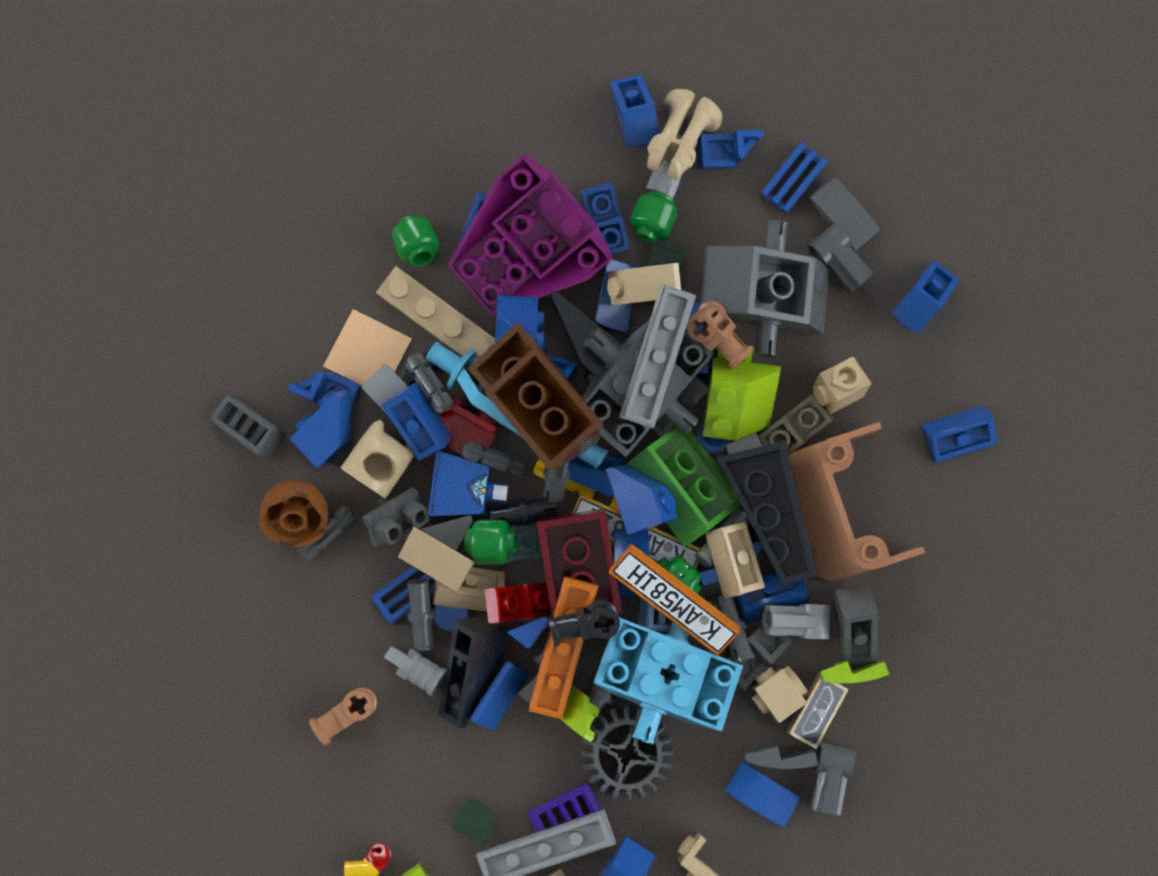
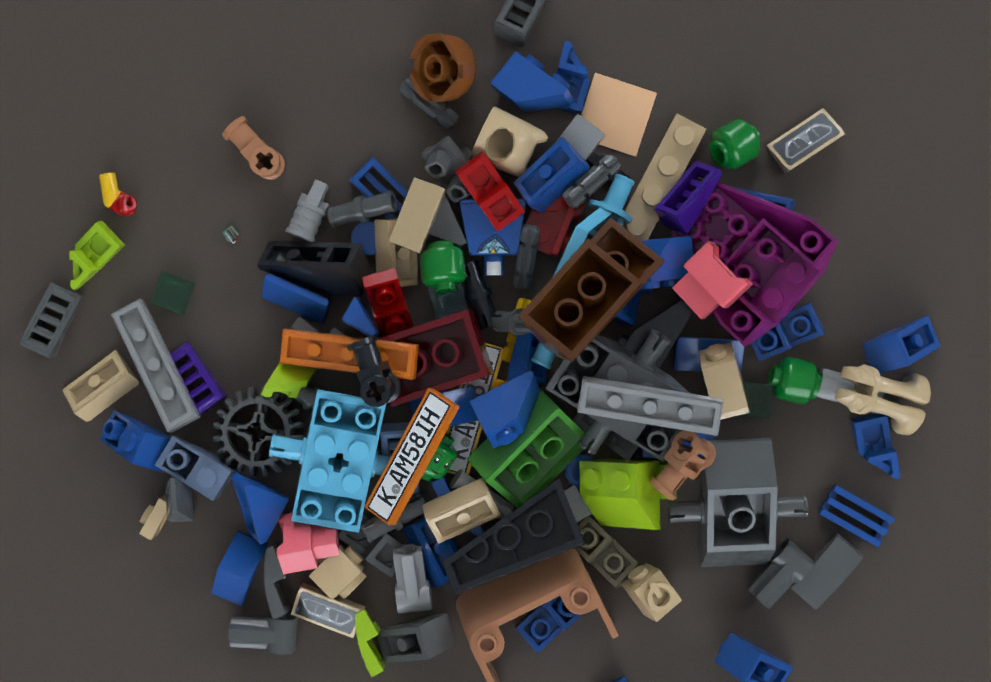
camera: 90 degrees right, 5 degrees up
(422, 173) = (805, 140): none -> slope
(423, 484) = (489, 191): none -> red slope
(425, 752) = (230, 234): none -> sand green piece
(477, 300) = (682, 215): none -> dark purple slope
(546, 283) = (709, 282): none -> coral piece
(654, 822) = (196, 467): none -> sand blue slope
(686, 844) = (178, 501): none -> dark grey slope
(702, 763) = (259, 505): none -> blue slope
(747, 722) = (304, 545): none -> coral piece
(858, 493) = (545, 623): none -> blue slope

